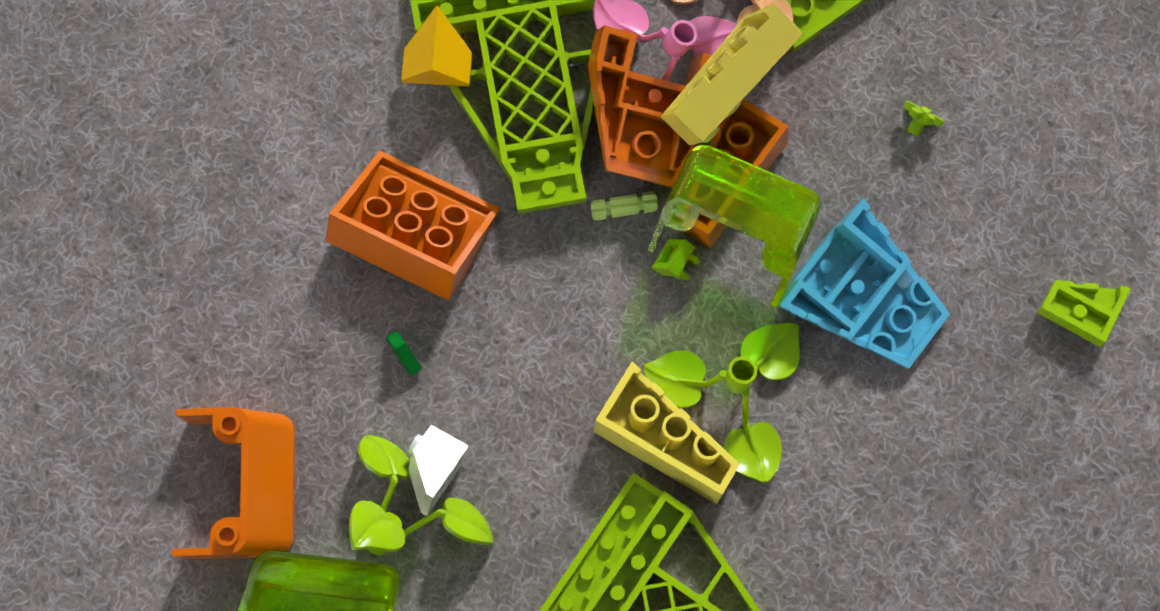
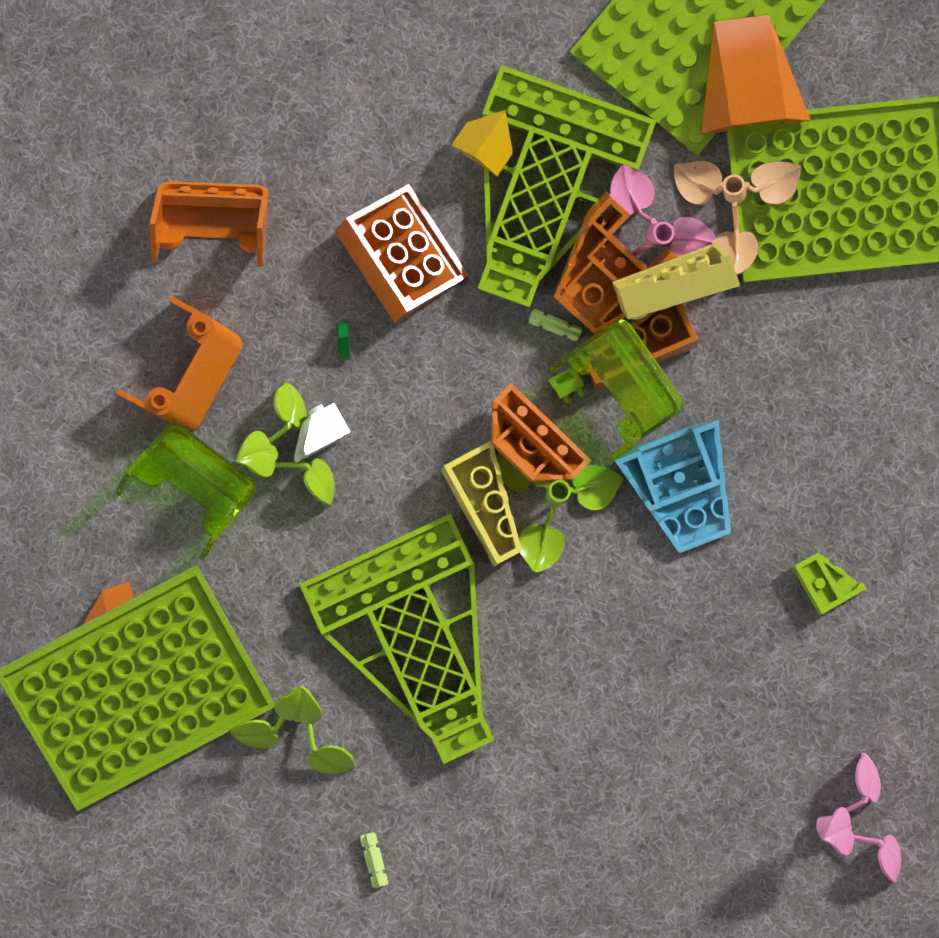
camera: 30 degrees right, 10 degrees up
(174, 301) = (209, 212): none -> orange windscreen
(677, 335) = (533, 440): none -> orange wedge
(921, 117) = (801, 383): lime plant -> none

